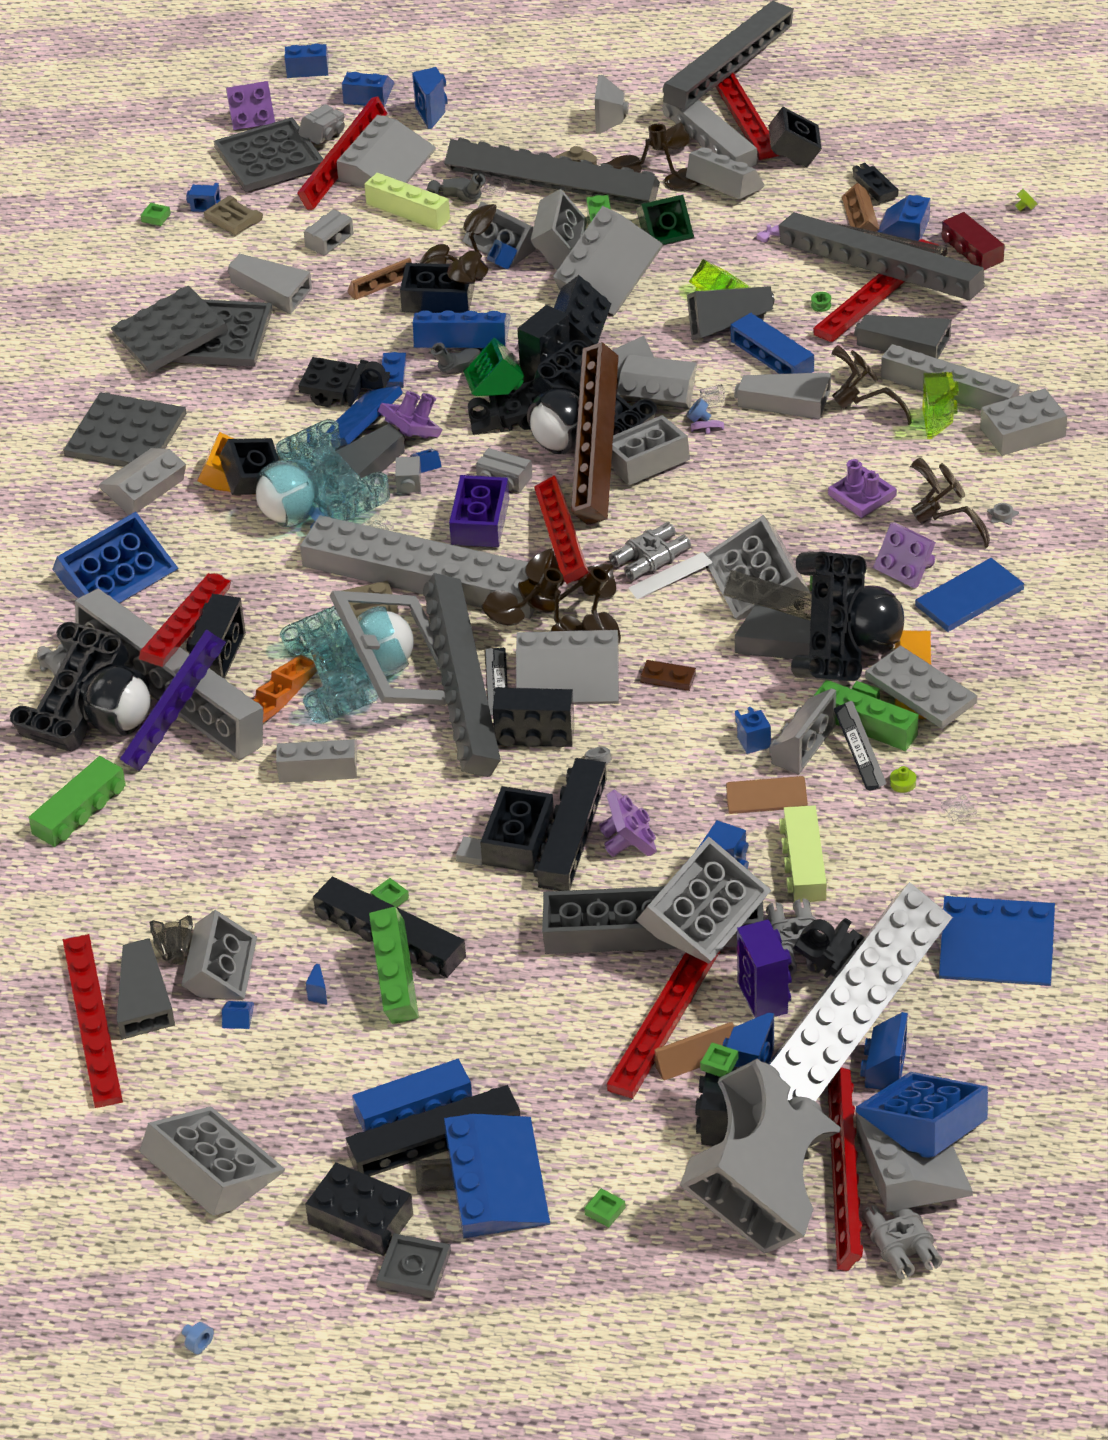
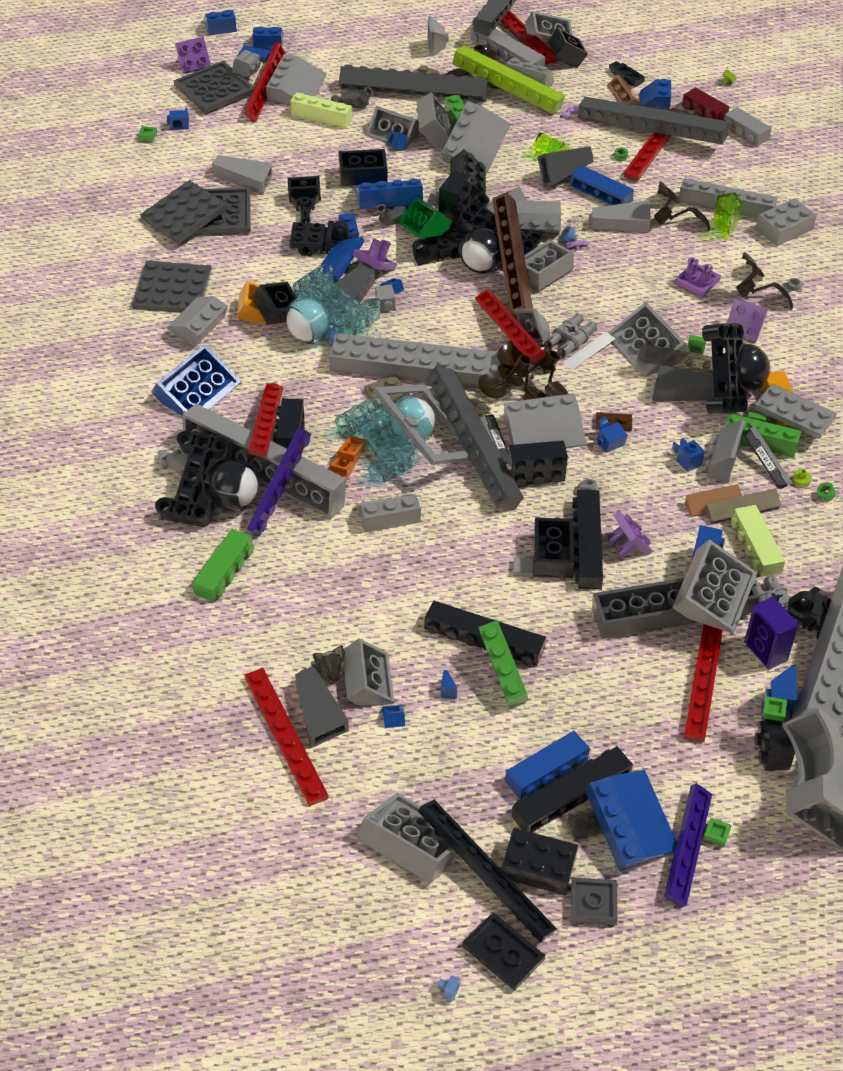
camera: 15 degrees left, 5 degrees up
(232, 215) = (201, 130): dark tan plate -> none
(279, 1306) = (503, 951): none -> black plate
(287, 1208) = (487, 870): none -> black plate
(328, 232) = (273, 135): light grey brick -> none
(343, 319) = (304, 193): none -> black brick
(349, 109) = (264, 53): none -> blue tile
(377, 280) = (320, 164): medium nougat slope -> none
(391, 892) = (477, 606): bright green plate -> none
(429, 95) = (313, 38): blue slope -> none
(469, 265) = (382, 150): dark brown plant -> none
(479, 511) = (445, 318): dark purple brick -> none
(497, 186) = (378, 96): clear tile -> none
(501, 464) = (450, 288): light grey brick -> none
(559, 1217) = (688, 846): none -> dark purple plate
(597, 532) = (533, 323): none -> light grey slope
(652, 693) = (610, 436): none -> blue brick
(666, 219) = (503, 106): dark green slope -> none
(688, 1053) = (738, 699): medium nougat slope -> none
(689, 178) = (508, 79): none -> lime brick
(766, 100) = (545, 25): none -> light grey slope
(828, 804) = (724, 509): none -> dark tan tile
(913, 333) = (675, 170): dark grey slope -> none
(928, 801) = (831, 491): none -> bright green bush
(969, 594) = (794, 342): blue tile -> none
(1023, 277) = (747, 126): none -> light grey brick

